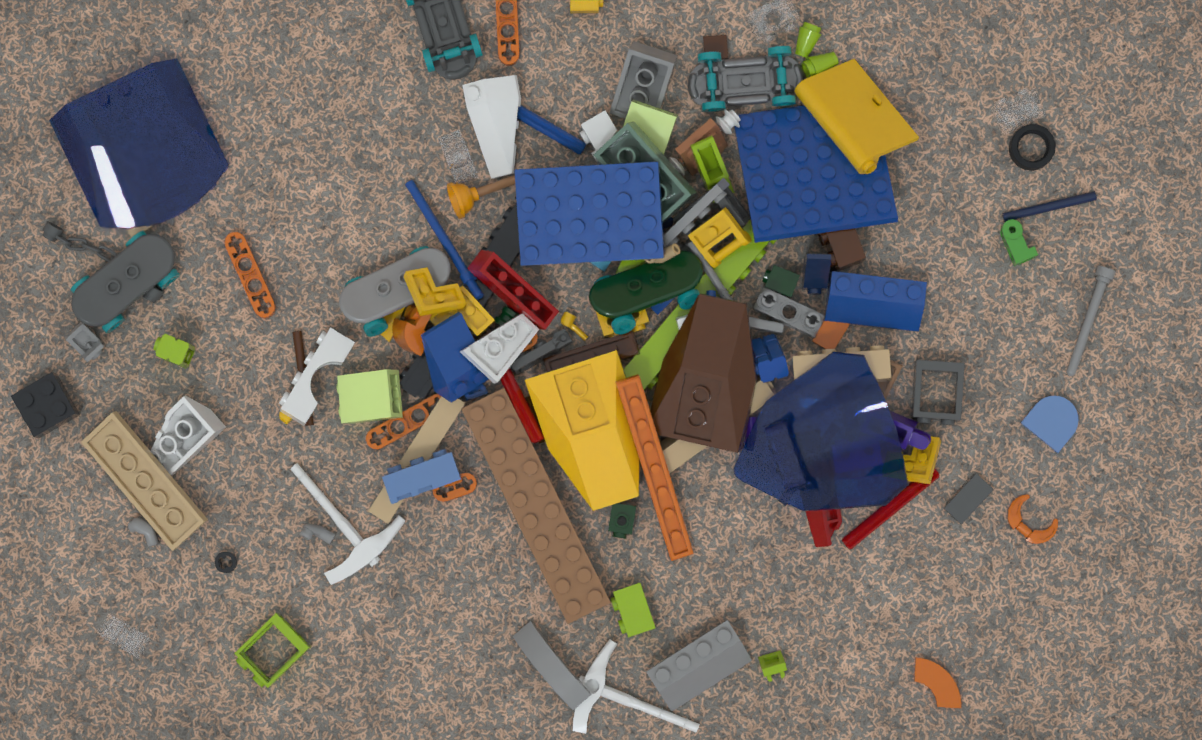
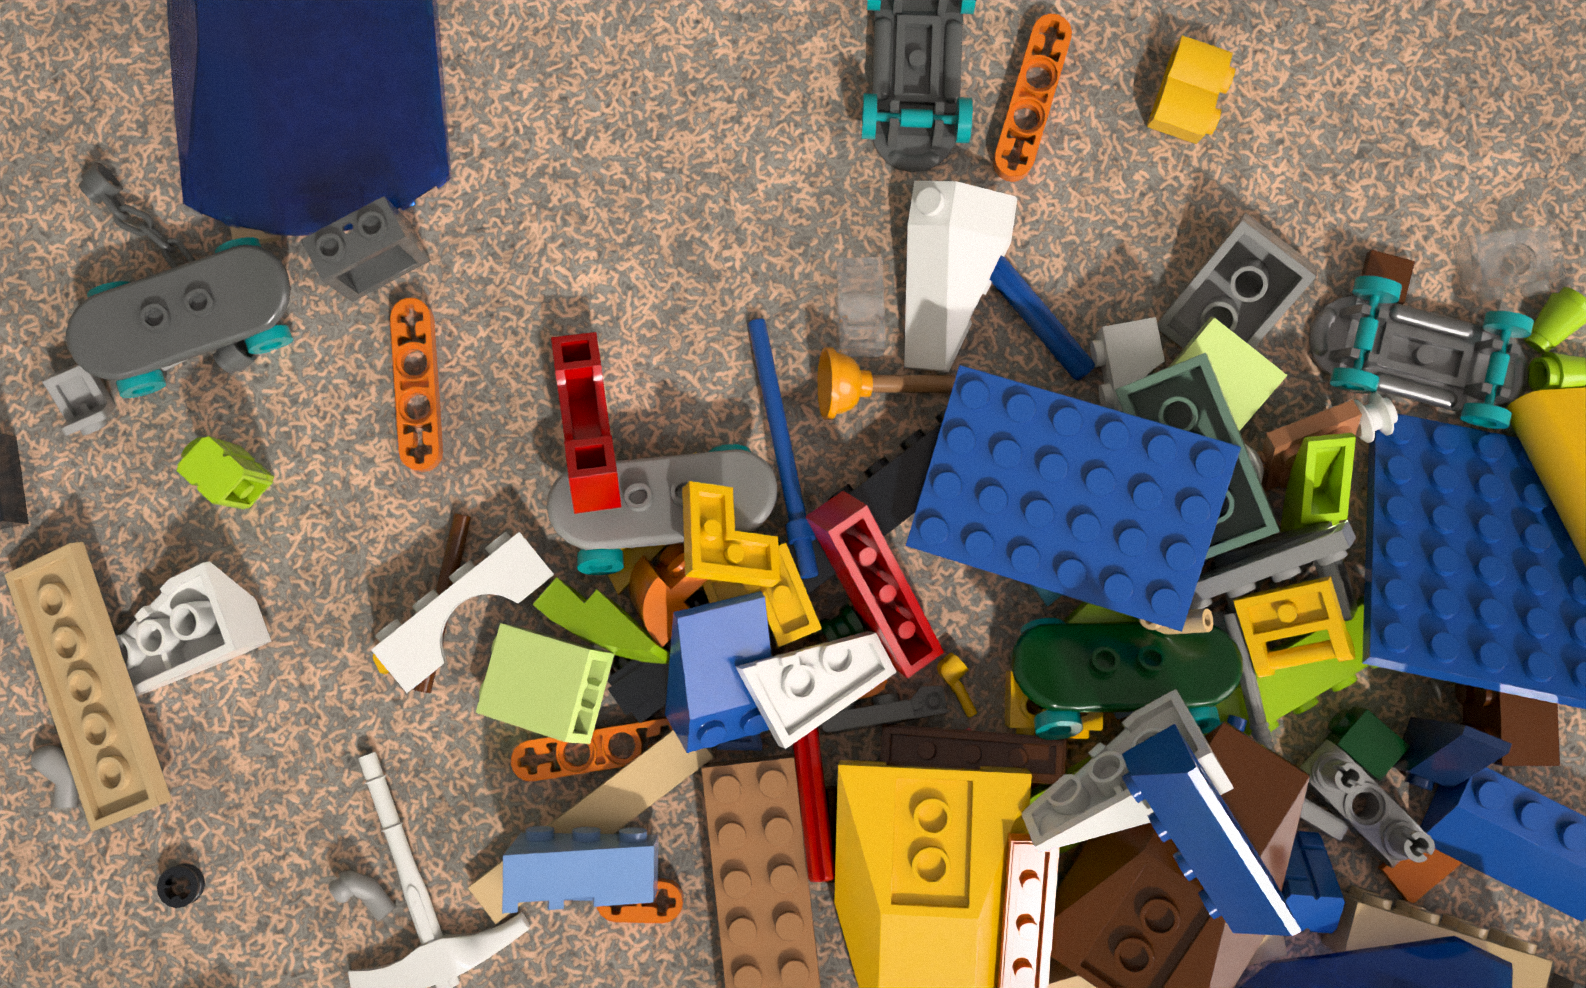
camera: 20 degrees right, 0 degrees up
(207, 219) = (371, 255): none -> dark grey window
(339, 255) = (585, 423): none -> red arch
(386, 357) = (599, 623): none -> lime slope
(671, 328) = (1097, 798): none -> white wedge
(698, 343) = (1207, 836): none -> blue slope

